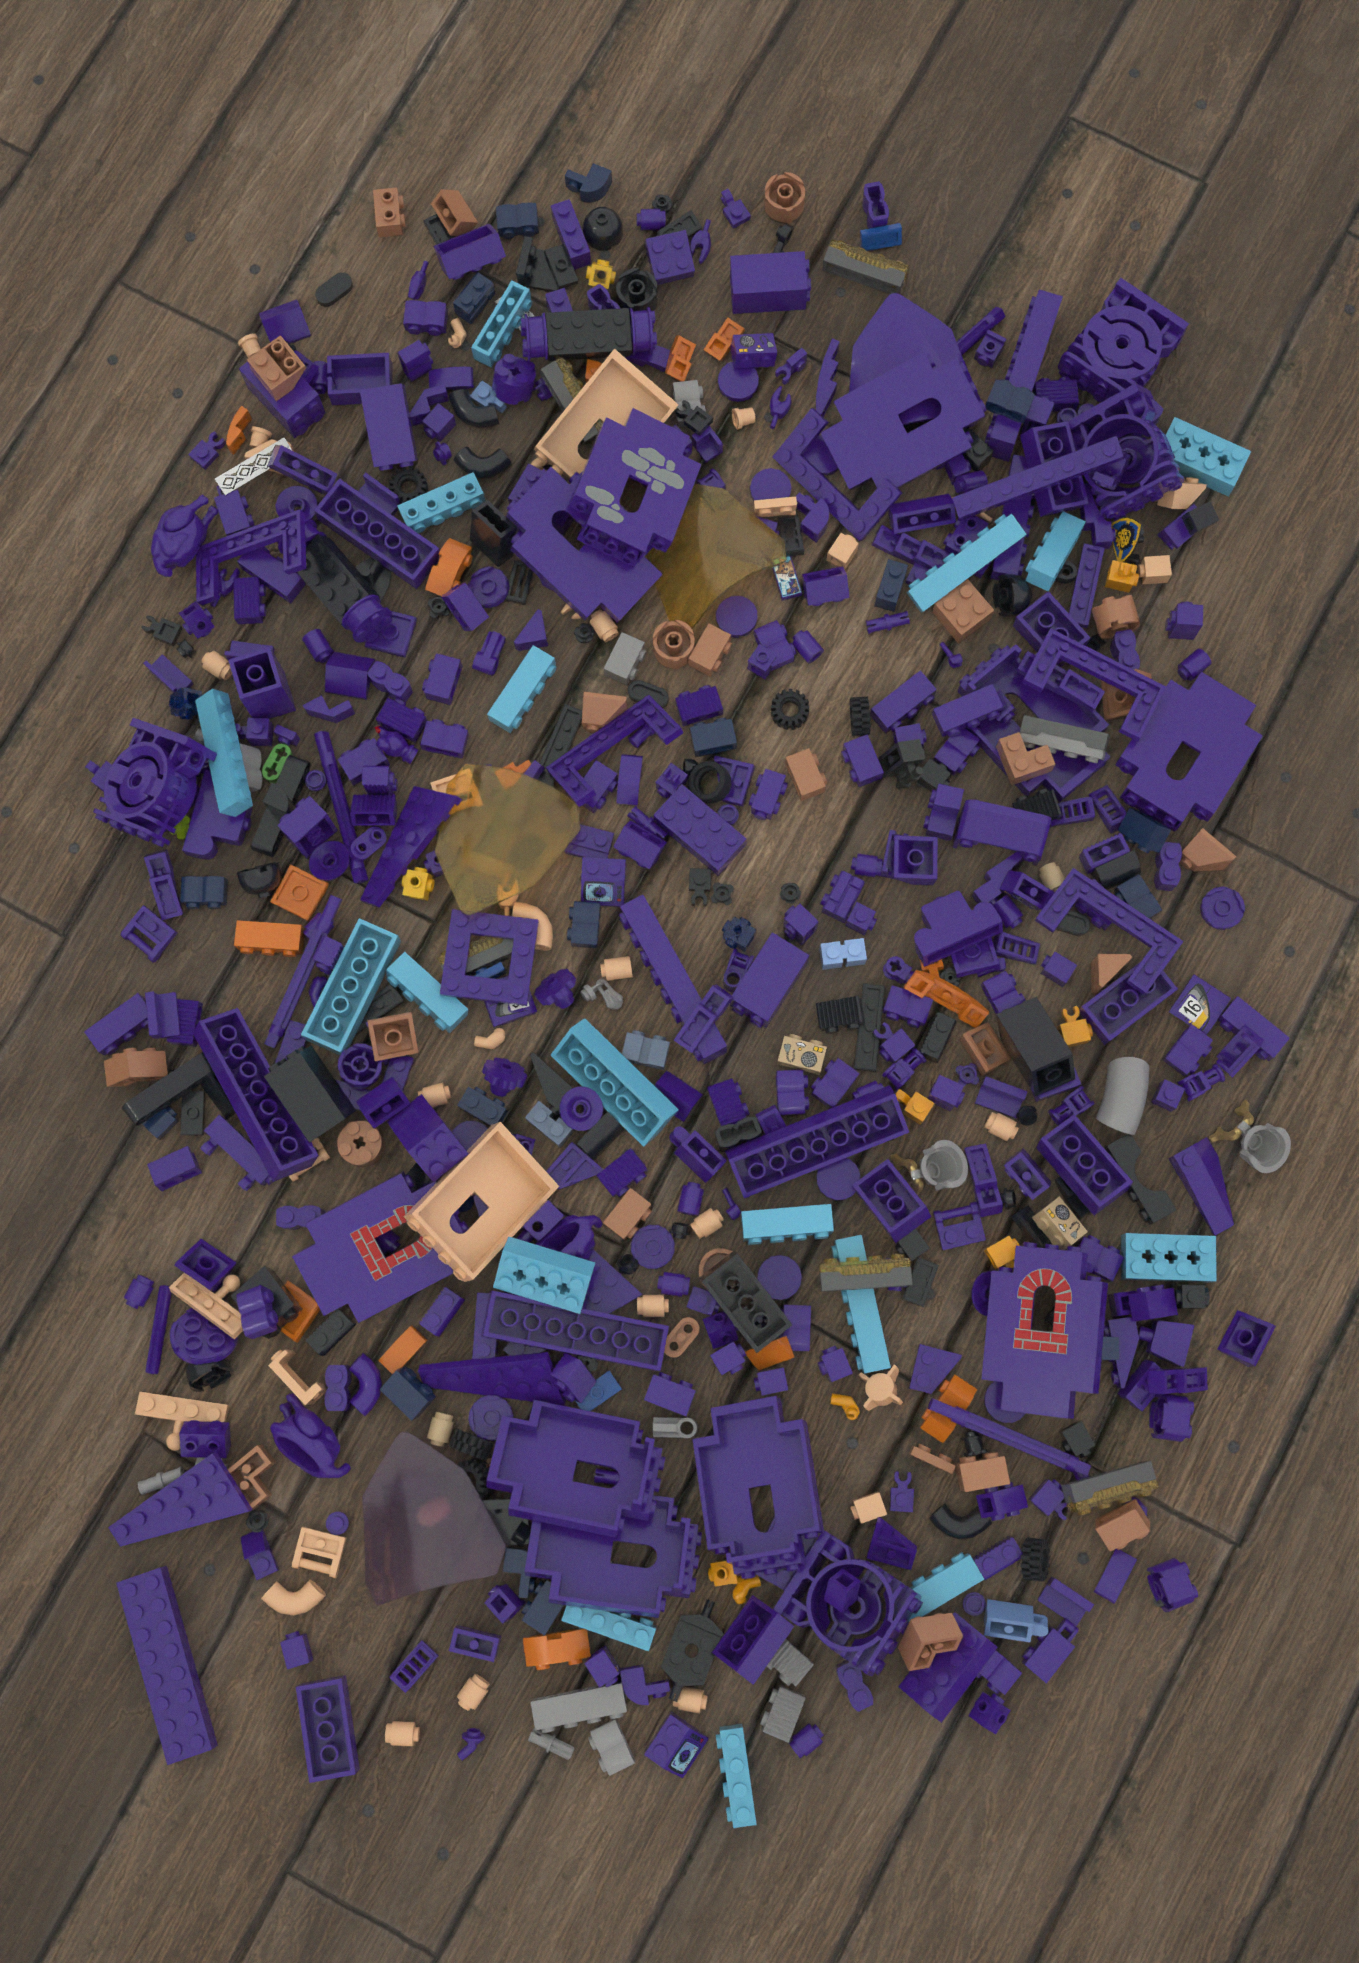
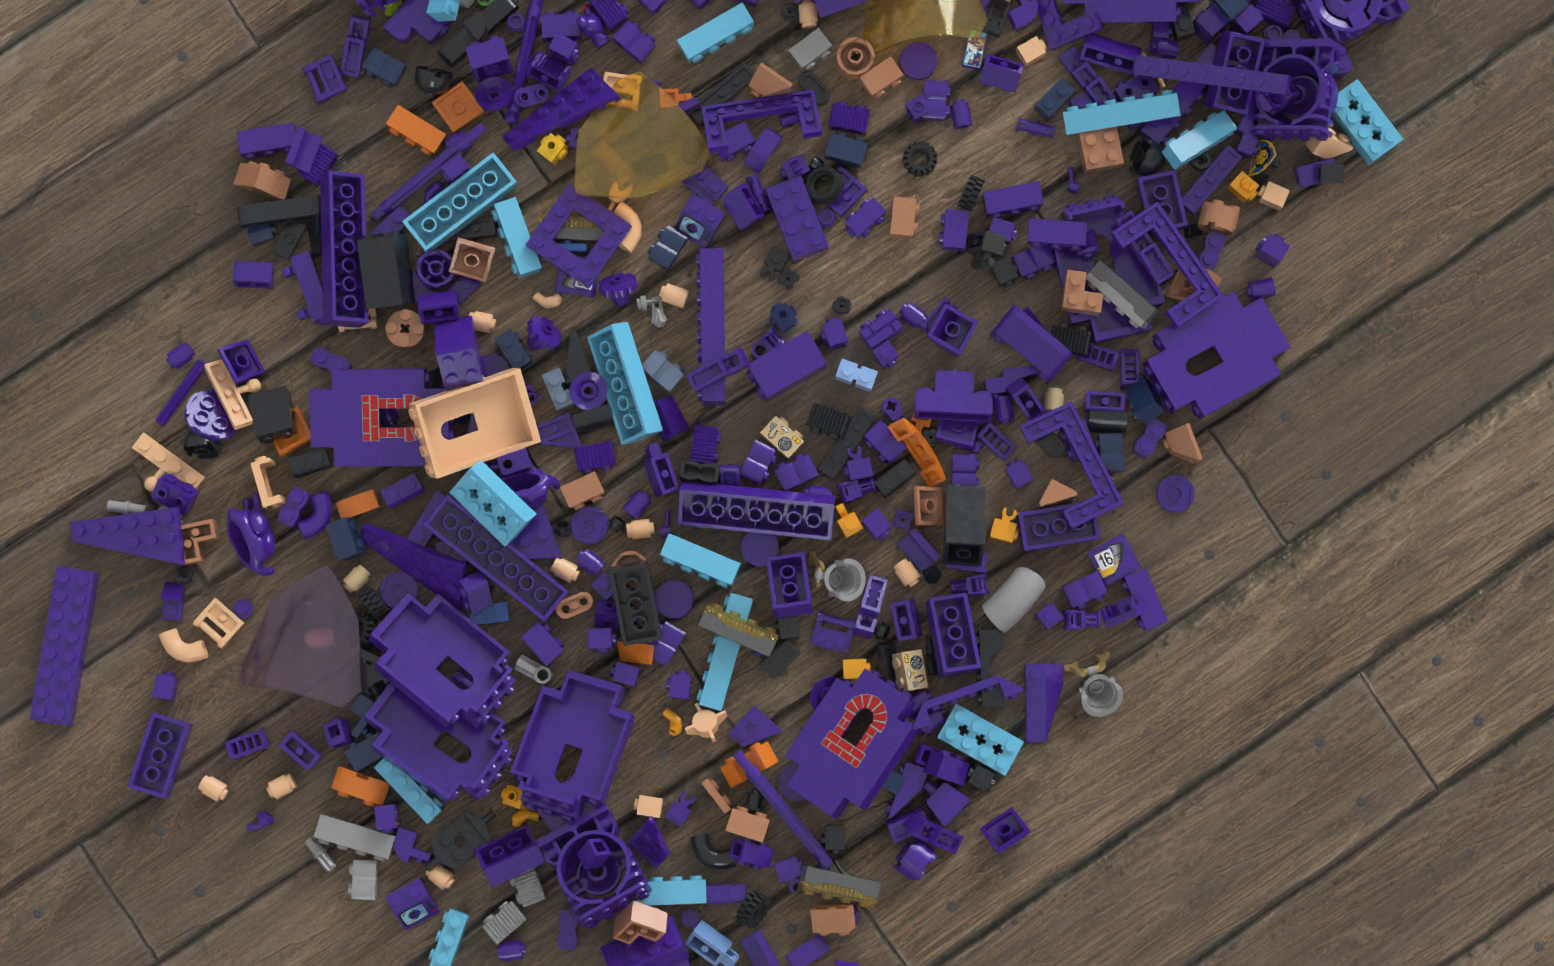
camera: 20 degrees right, 5 degrees up
(257, 1312) = (262, 418): dark purple brick -> none
(944, 807) = (996, 304): dark purple brick -> none
(1170, 1190) = (1007, 688): none -> dark purple slope

